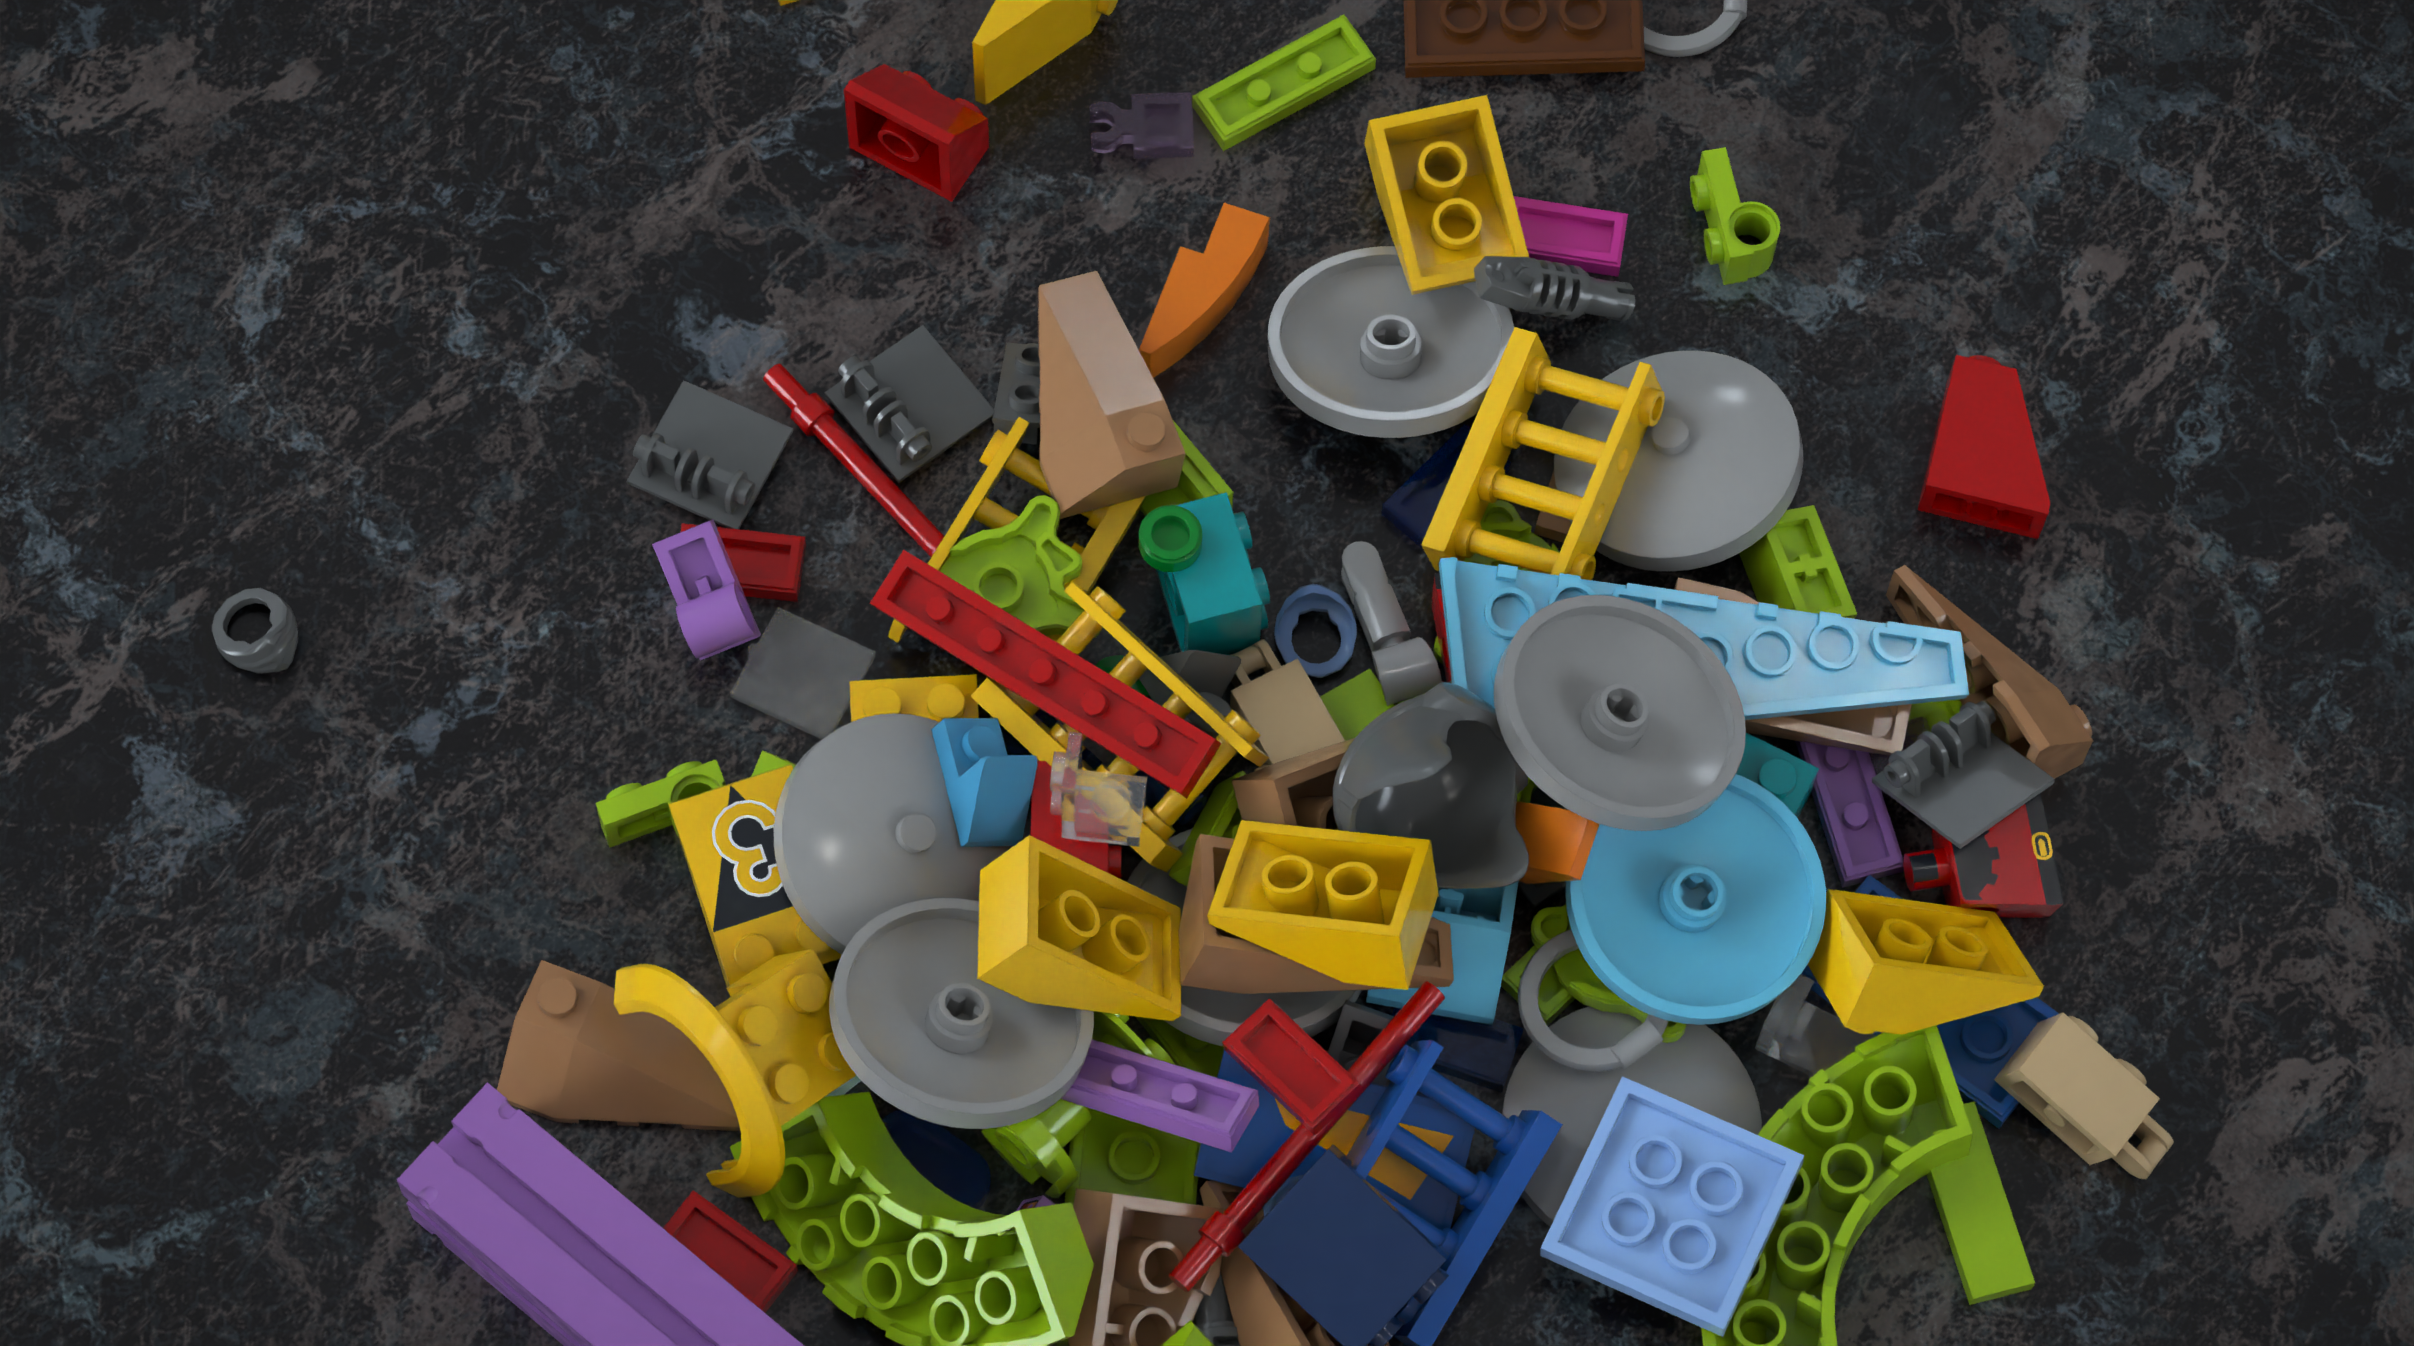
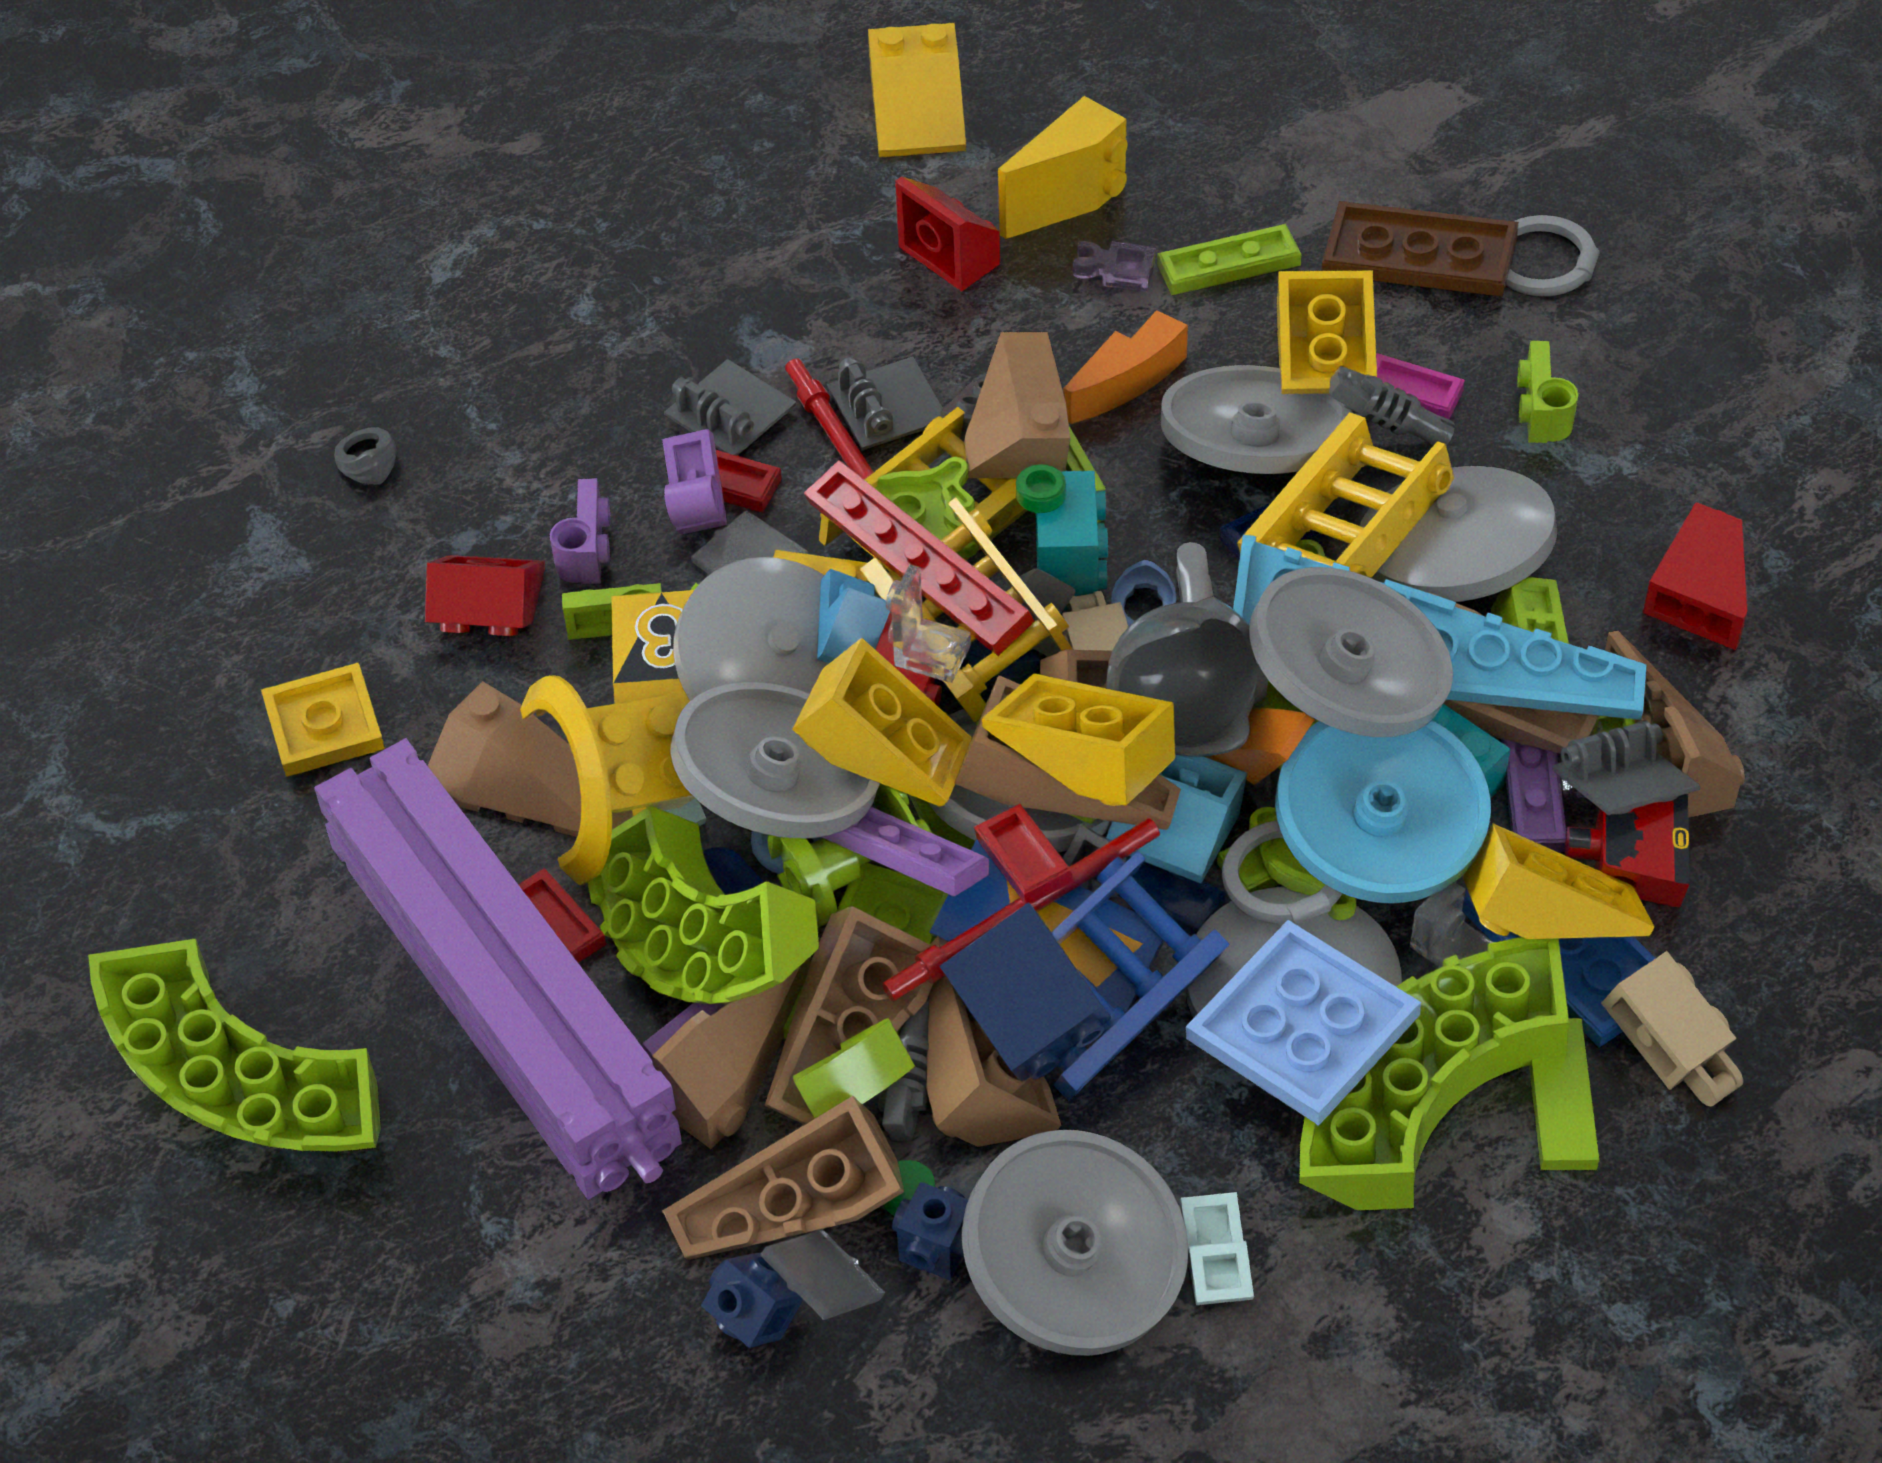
camera: 20 degrees right, 15 degrees down
(342, 1044) = (322, 719): none -> yellow plate
(486, 810) = (482, 593): none -> red slope
(588, 697) = (579, 541): none -> medium lavender plate

